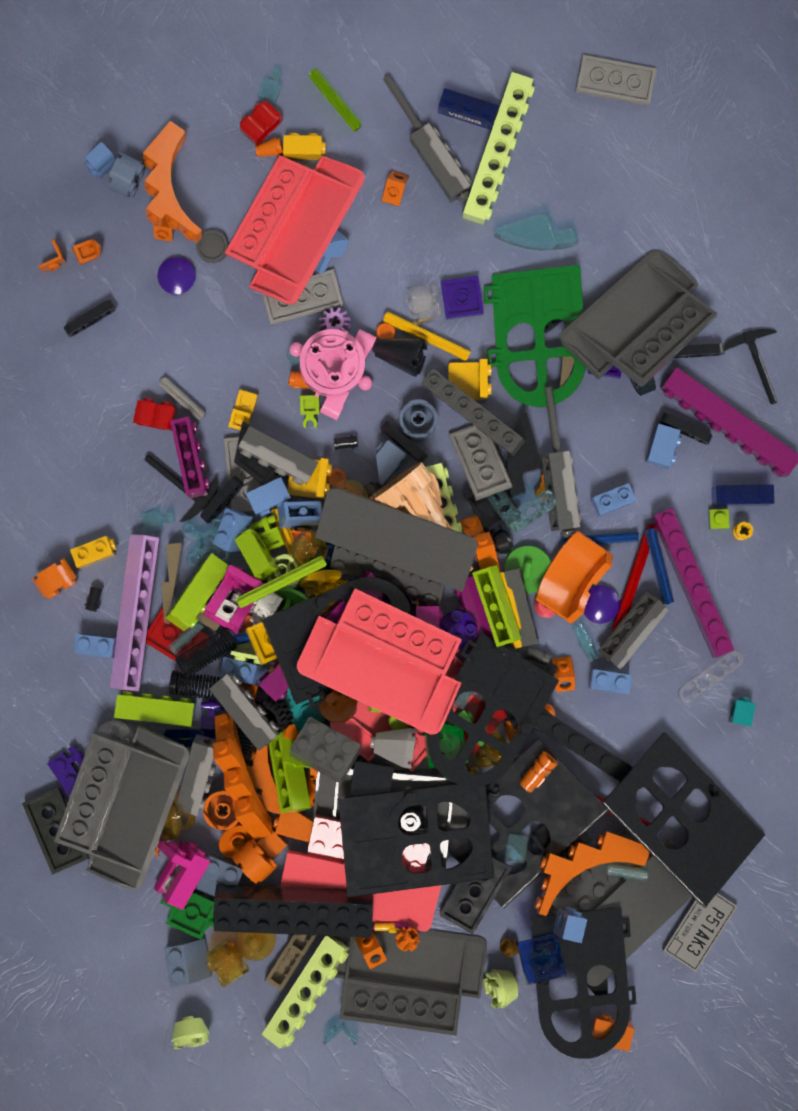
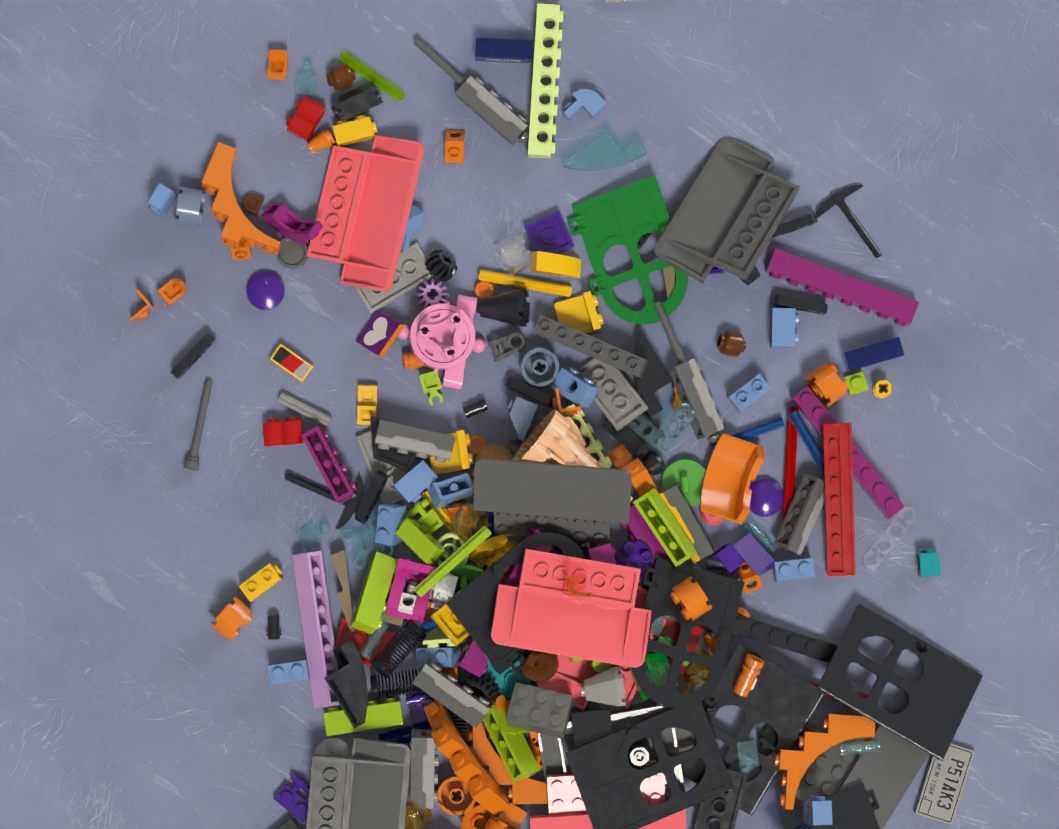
camera: 15 degrees left, 0 degrees up
(60, 419) = (192, 461): none -> dark grey piece
(149, 673) = (350, 683): none -> black slope
(181, 350) = (291, 362): none -> slope
(187, 190) = (252, 203): none -> reddish brown tile
(217, 218) = (291, 225): none -> magenta arch
(248, 64) = (277, 64): none -> orange bracket
(273, 346) = (379, 334): none -> tile
(304, 92) = (340, 76): none -> reddish brown head
(313, 118) = (356, 101): none -> black brick
(350, 296) = (441, 265): none -> black gear
(387, 638) = (570, 587): none -> clear orange panel
(391, 391) = (505, 346): none -> dark grey piece
(424, 459) = (557, 405): none -> orange bracket
(438, 443) = (585, 390): none -> medium blue brick
(460, 324) = (555, 264): none -> yellow slope
(502, 681) = (690, 598): none -> orange brick
(534, 178) = (588, 101): none -> medium blue brick
(550, 652) = (728, 557): none -> dark purple panel
(575, 656) = (754, 554): none -> dark purple brick
(608, 447) = (731, 343): none -> reddish brown head
(673, 625) = (839, 499): none -> red plate
(691, 511) = (827, 384): none -> orange brick

